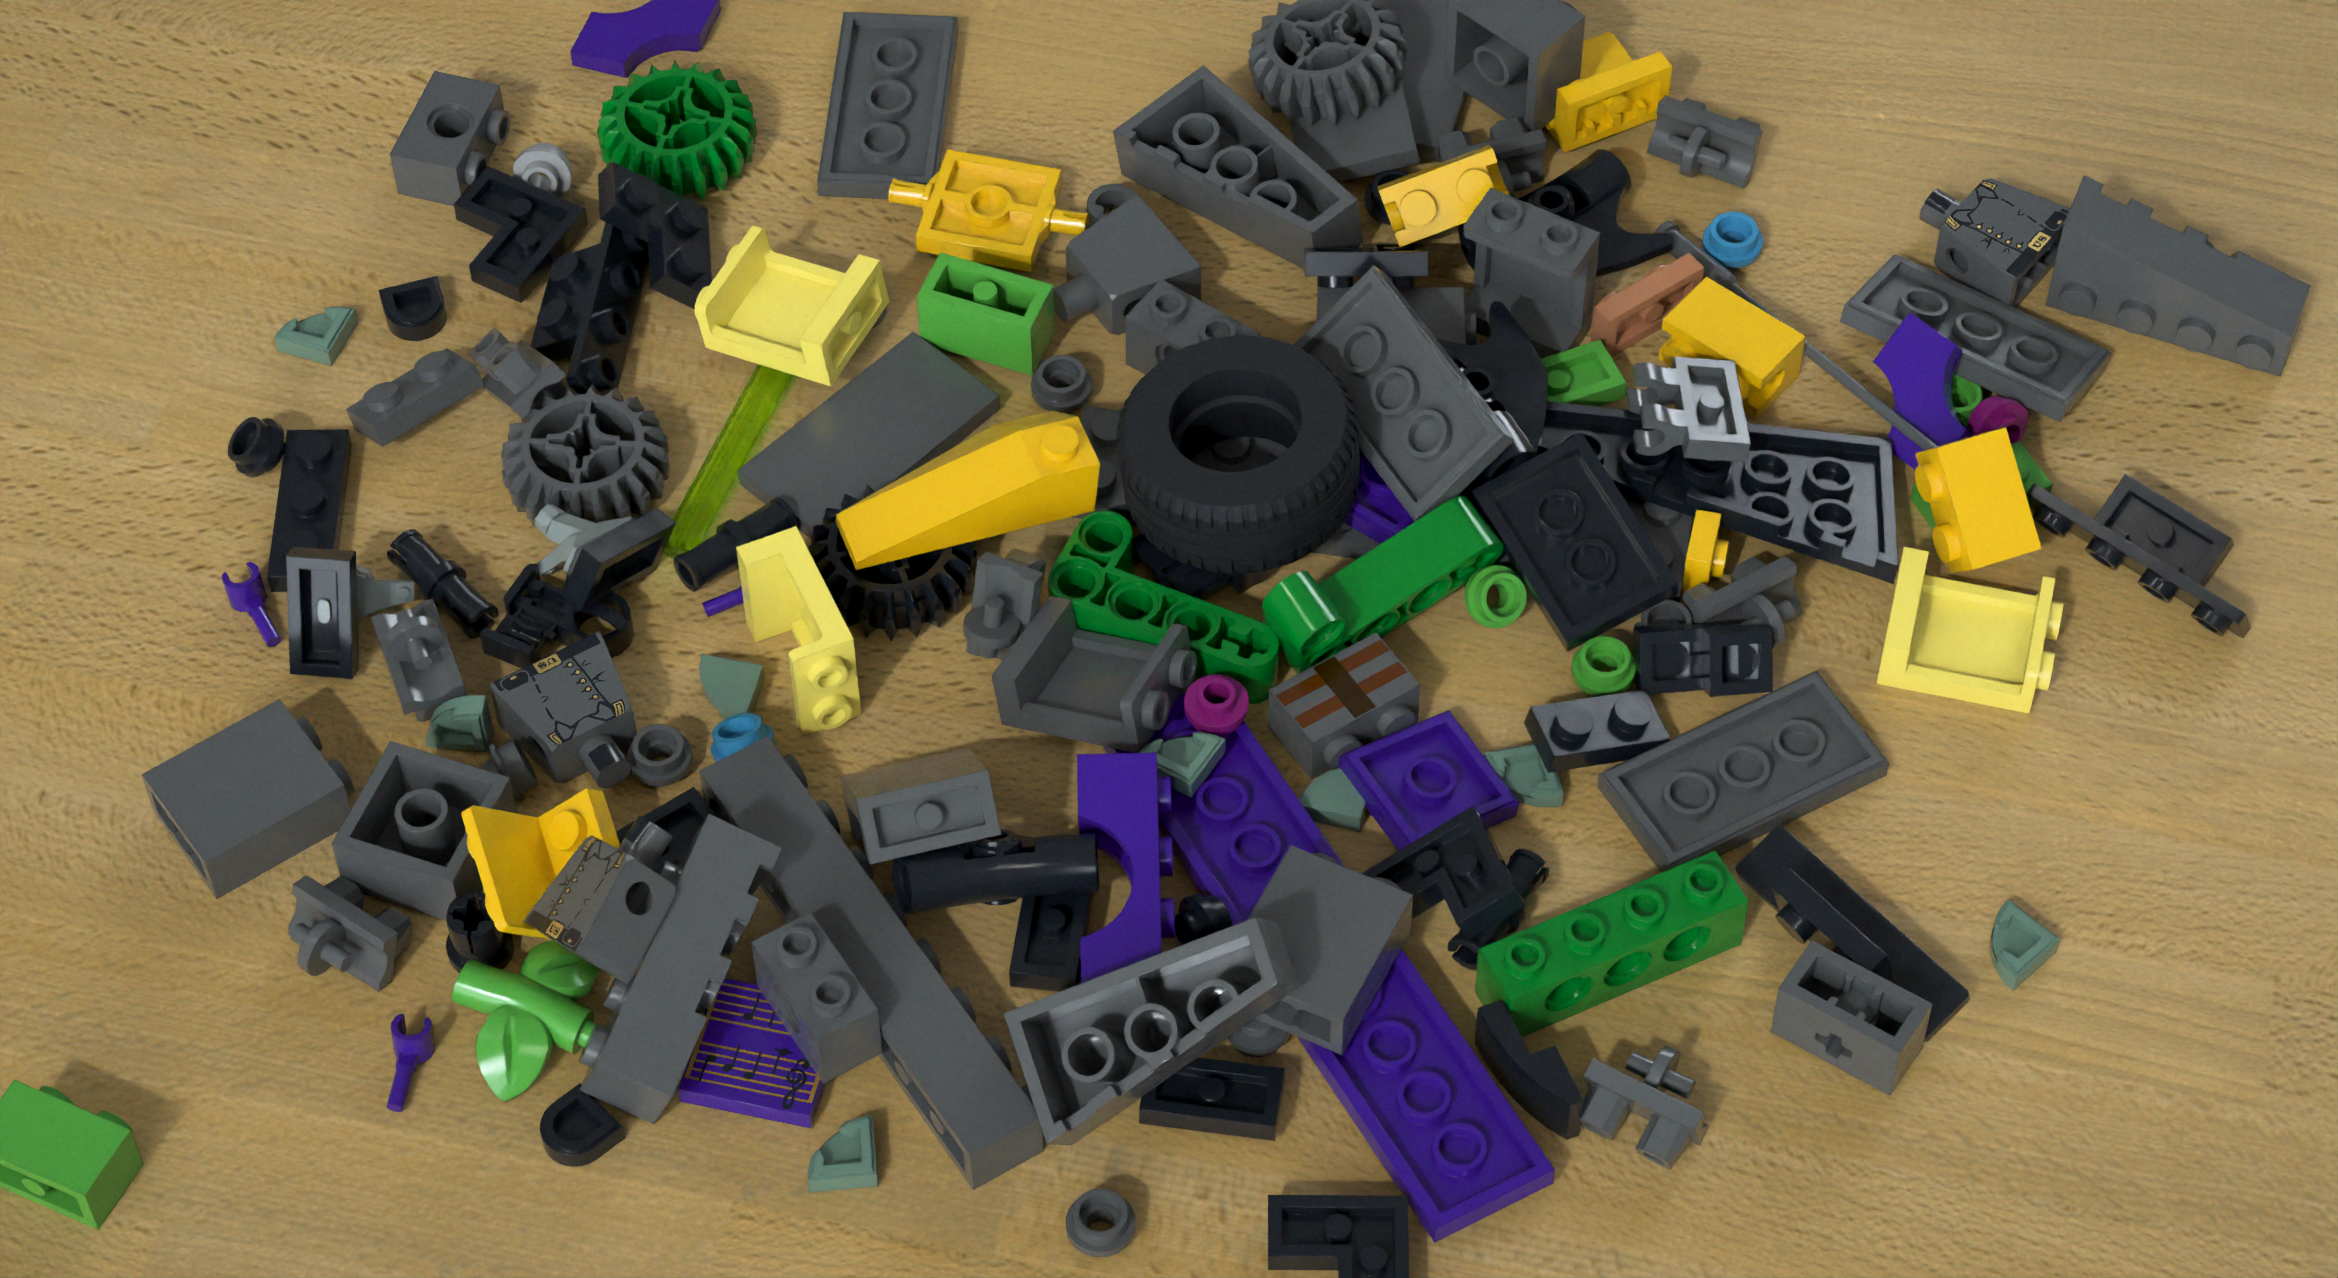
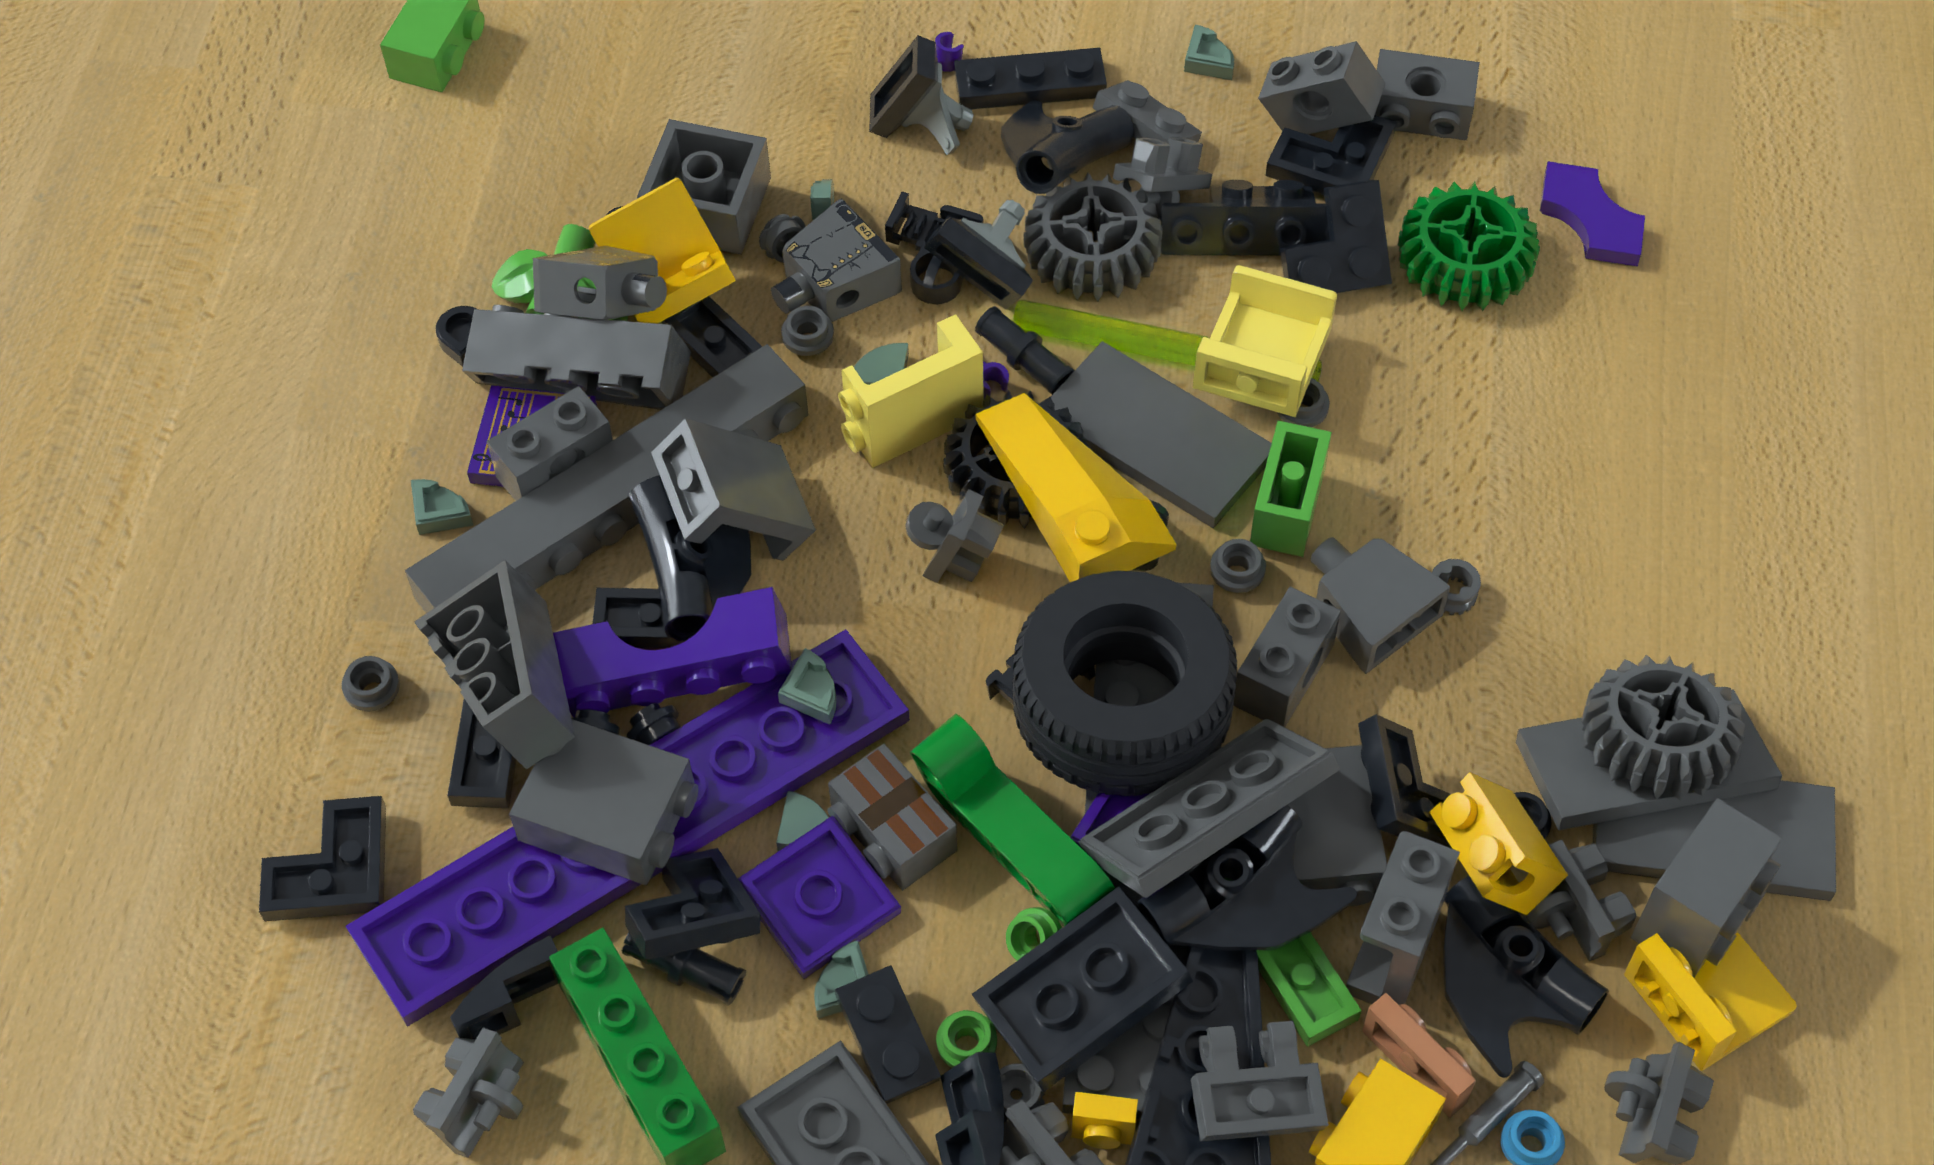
camera: 85 degrees right, 5 degrees up
(250, 797) = (742, 80): dark grey brick -> none
(256, 446) = (1079, 31): black plate -> none
(340, 934) = (614, 175): dark grey hips -> none
(409, 1053) = (535, 221): dark purple hand -> none
(414, 309) = (1242, 110): black tile -> none
(419, 659) = (876, 157): dark grey hips -> none
(442, 211) = (1322, 89): none -> dark grey brick
(443, 582) = (960, 167): black pin -> none
(448, 470) = (1063, 140): none -> black pin
(547, 160) = (1403, 162): light grey plate -> none
(737, 734) = (821, 379): dark azure plate -> none
(887, 103) = (1549, 401): dark grey tile -> none
(988, 209) = (1431, 486): yellow plate -> none
(1091, 682) = (893, 611): dark grey panel -> none
(1111, 601) = (975, 621): green beam -> none
(1216, 718) = (870, 719): magenta plate -> none
(1236, 170) = (1509, 673): dark grey wedge -> none

